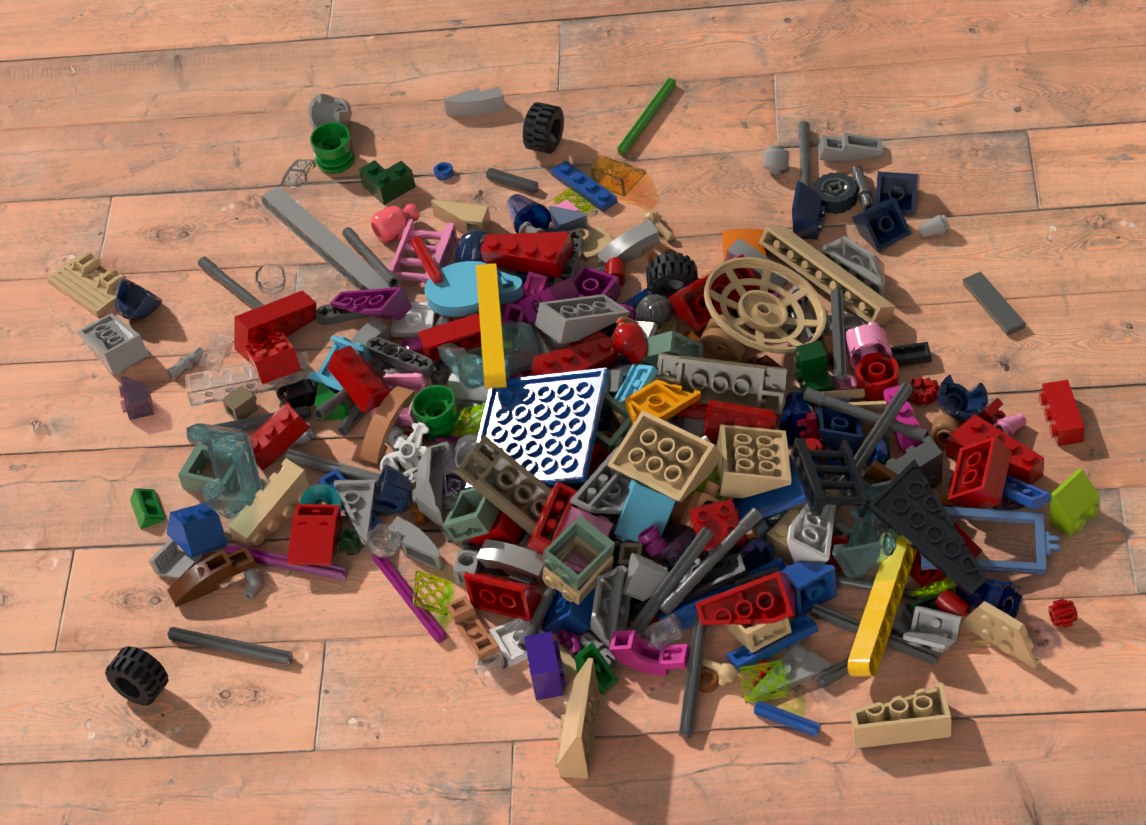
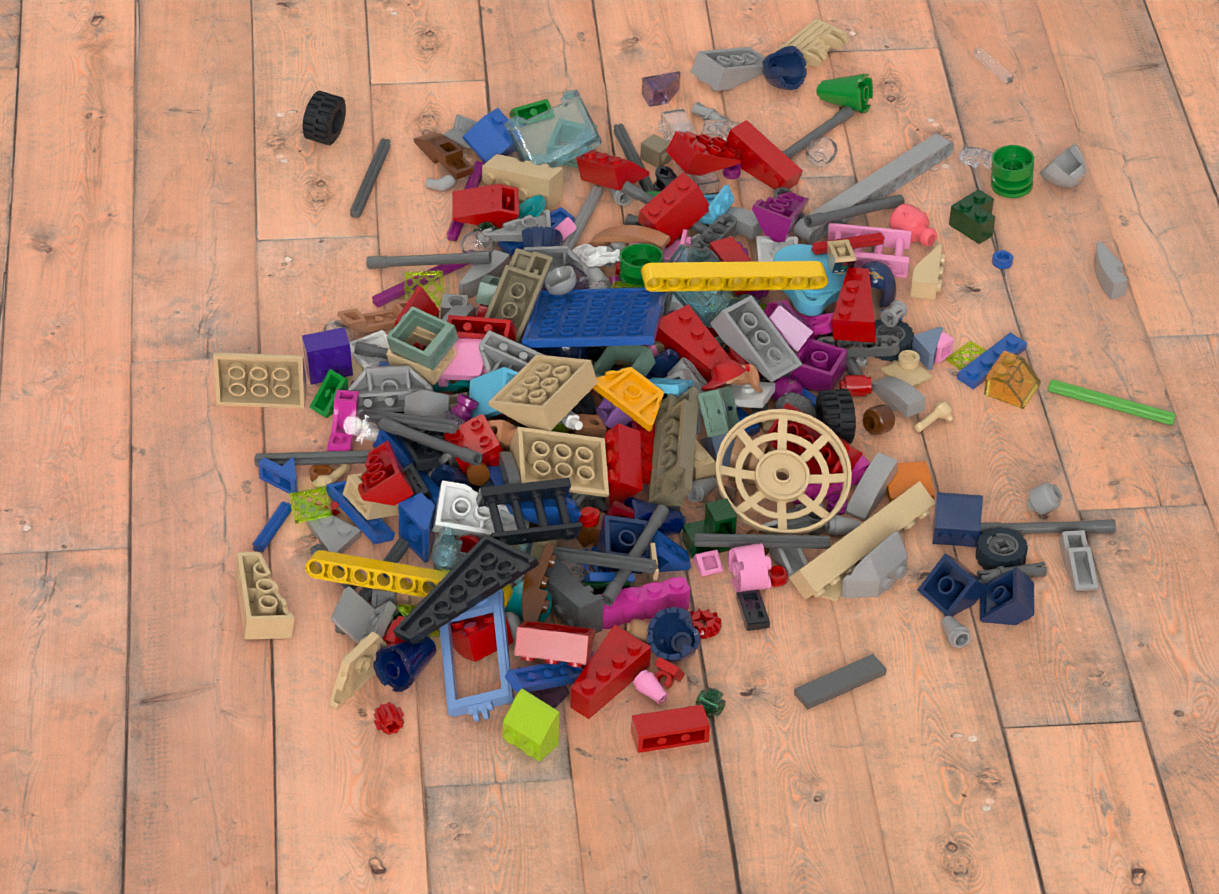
camera: 75 degrees right, 5 degrees down
(182, 255) = (847, 91): none -> green cone
(355, 472) = (566, 227): none -> bright pink slope
(381, 627) = (474, 257): none -> dark grey piece
(466, 253) = (840, 256): none -> tan slope
(512, 180) = (993, 308): dark grey axle -> none
(526, 210) = (930, 312): clear blue cone -> none
(543, 127) = (1063, 300): black tyre -> none
(715, 708) = (280, 476): none -> blue slope
(761, 502) = (508, 468): none -> dark grey beam
(846, 394) = (683, 551): tan tile -> none
(876, 374) = (709, 579): red brick -> none
(1030, 383) = (711, 701): none -> clear green gear

